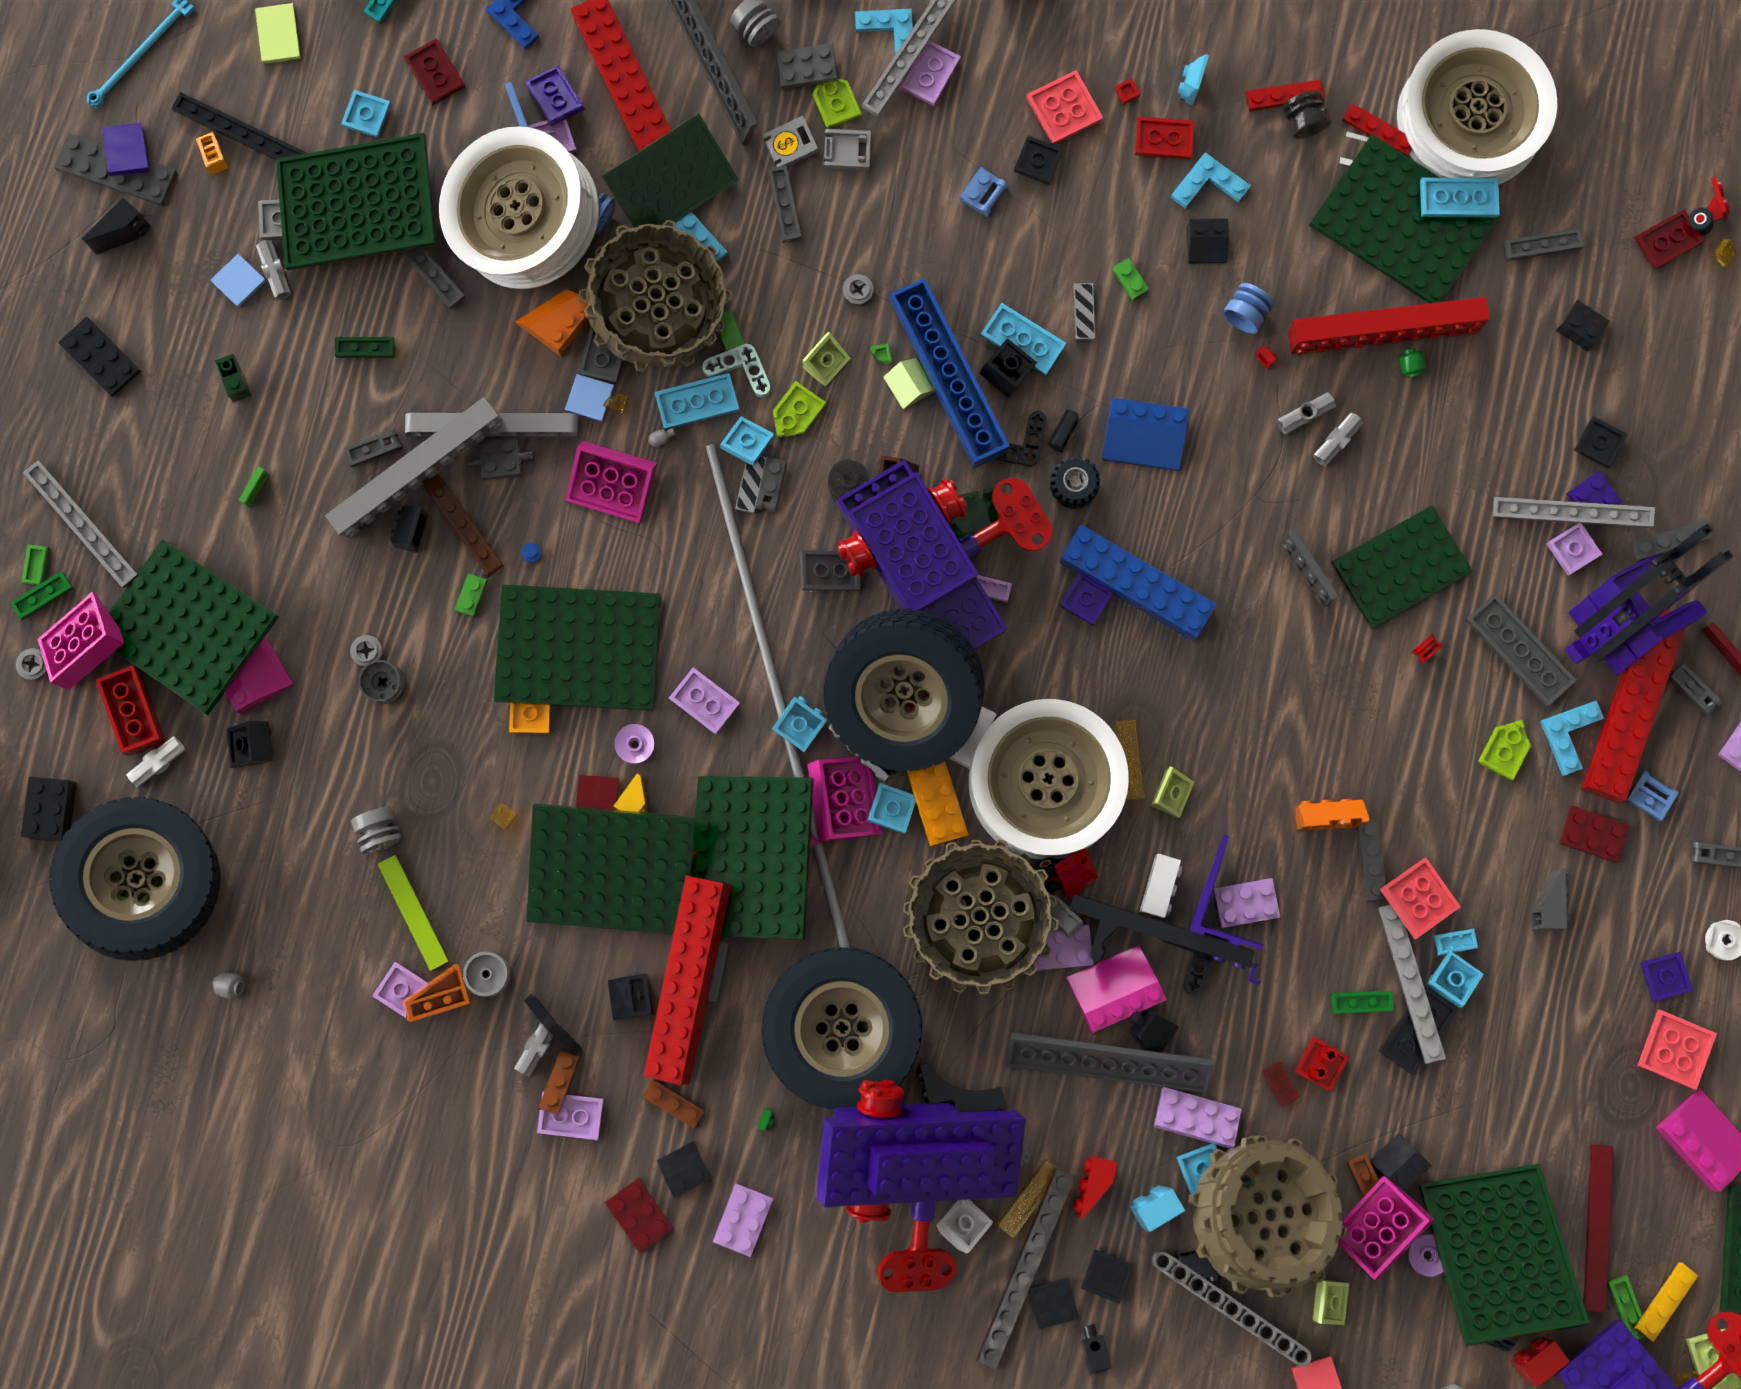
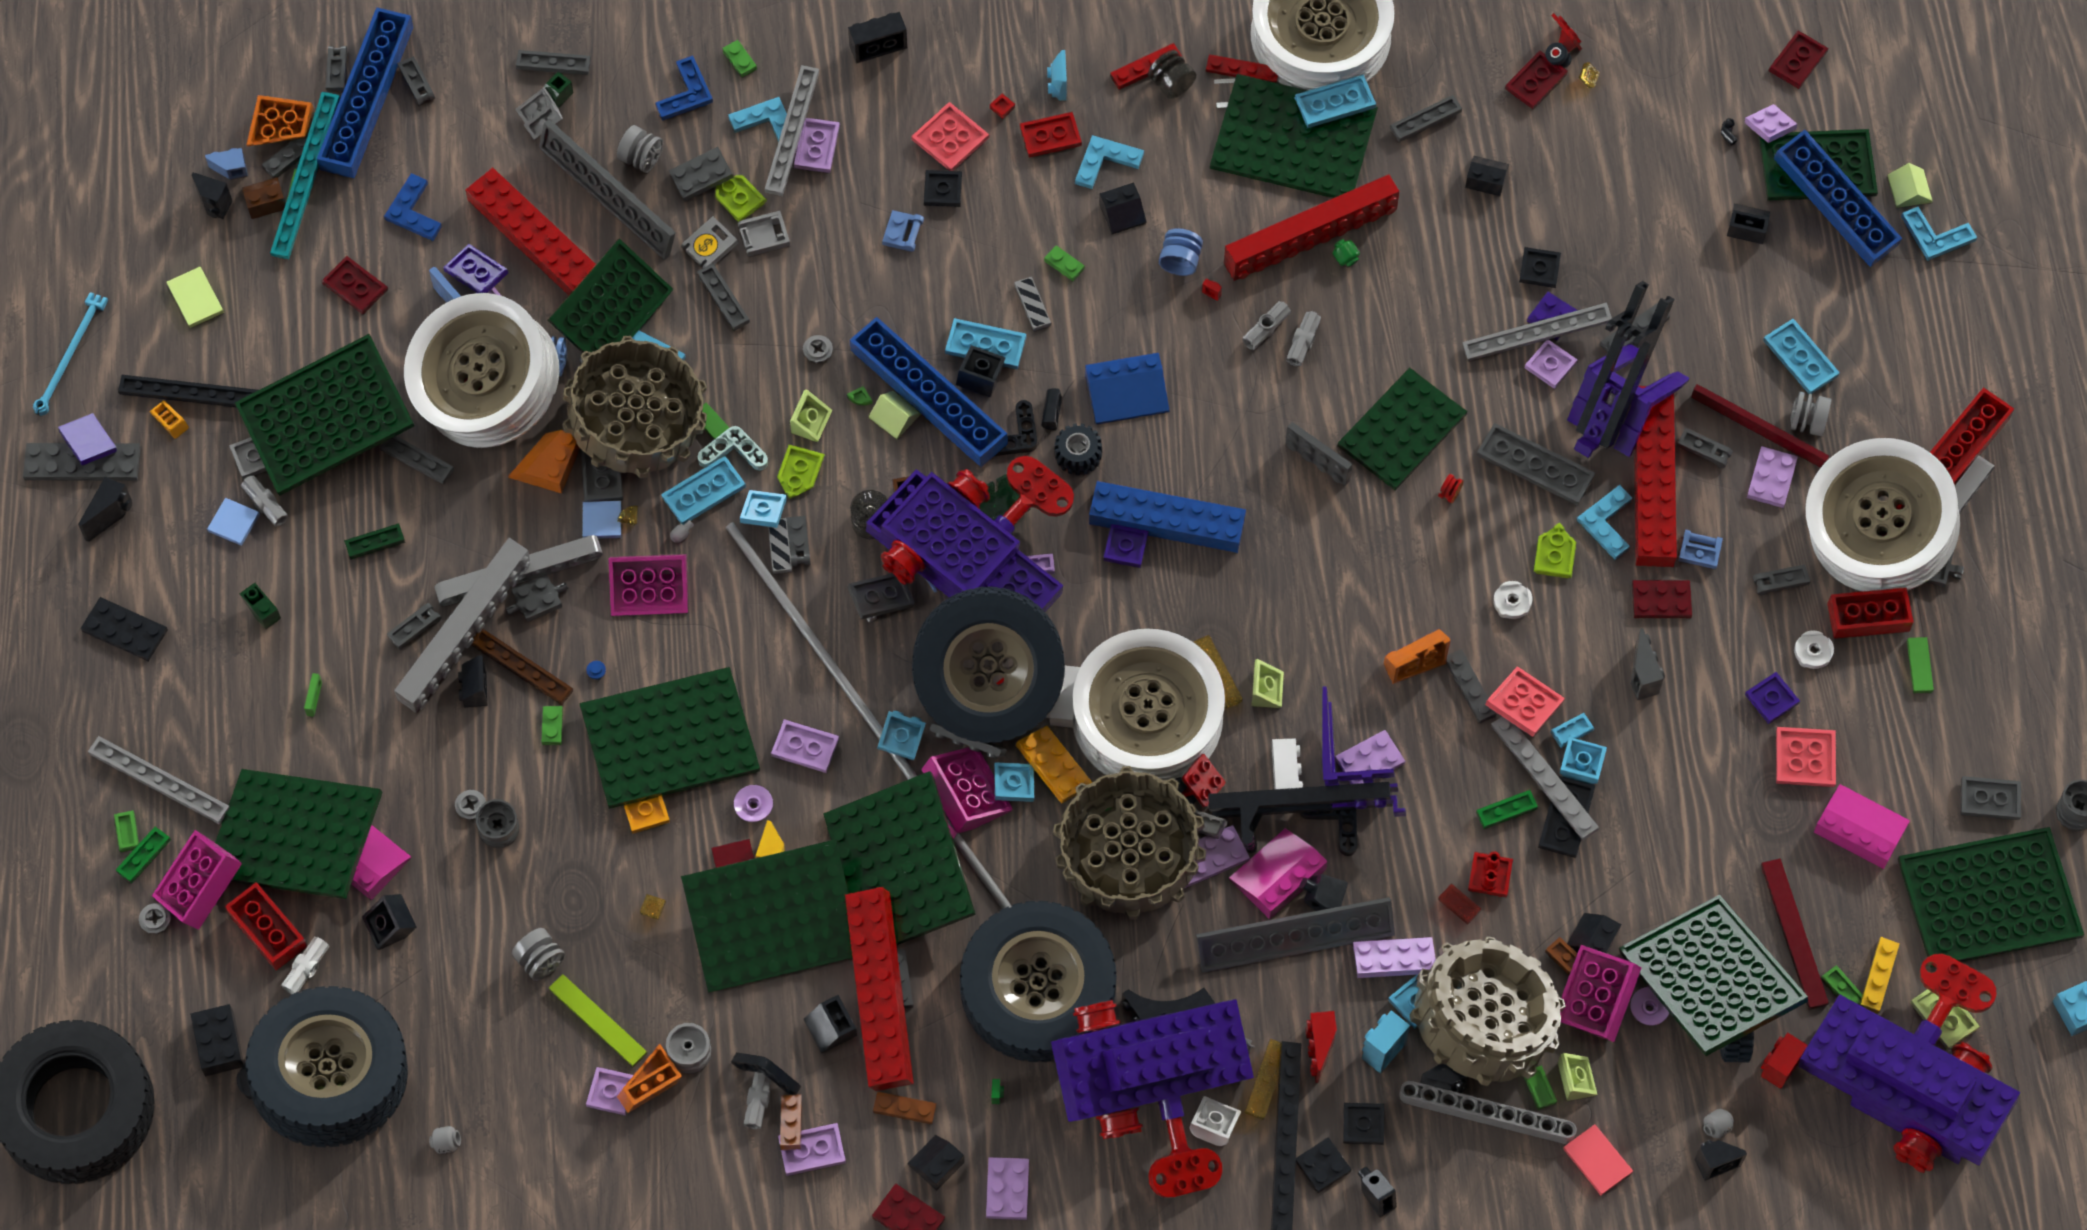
camera: 15 degrees left, 15 degrees down
(366, 114) = (303, 340): medium azure plate -> none
(1292, 1305) = (1541, 1089): none -> bright green tile
(1455, 779) = (1506, 608): none -> white plate

